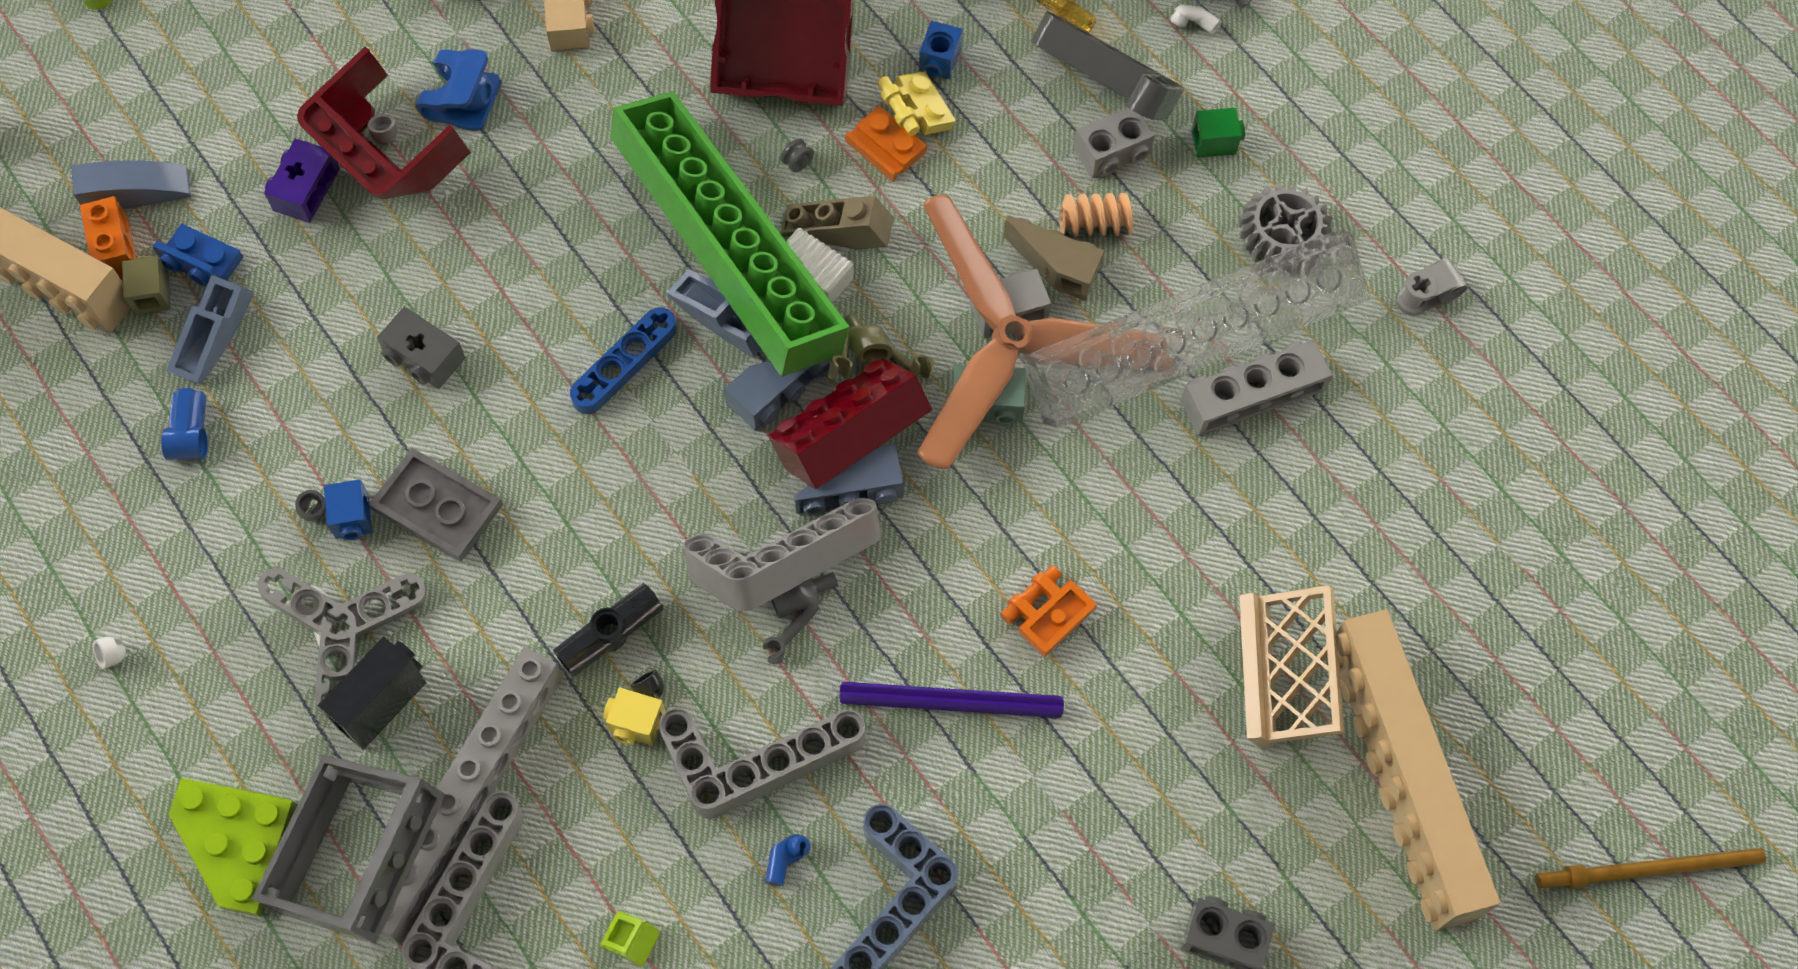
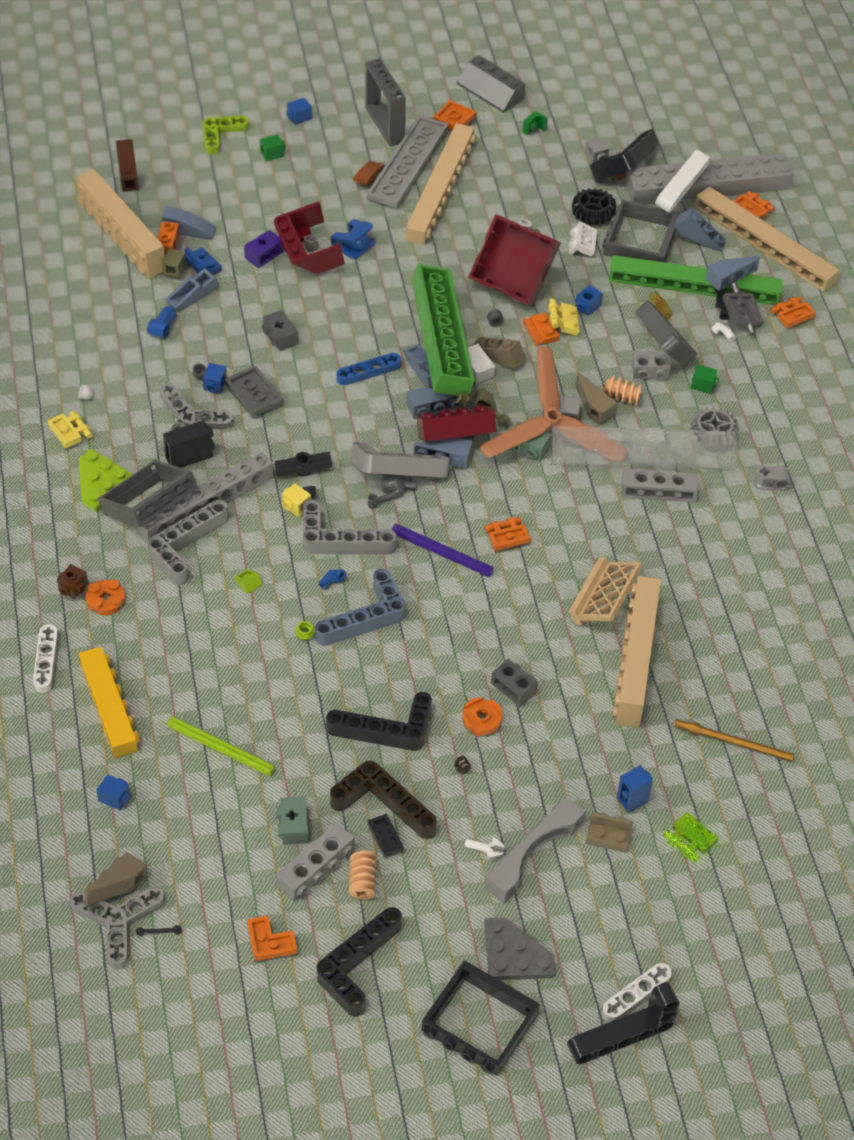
camera: 25 degrees right, 15 degrees down
(111, 761) = (65, 431): none -> light yellow plate

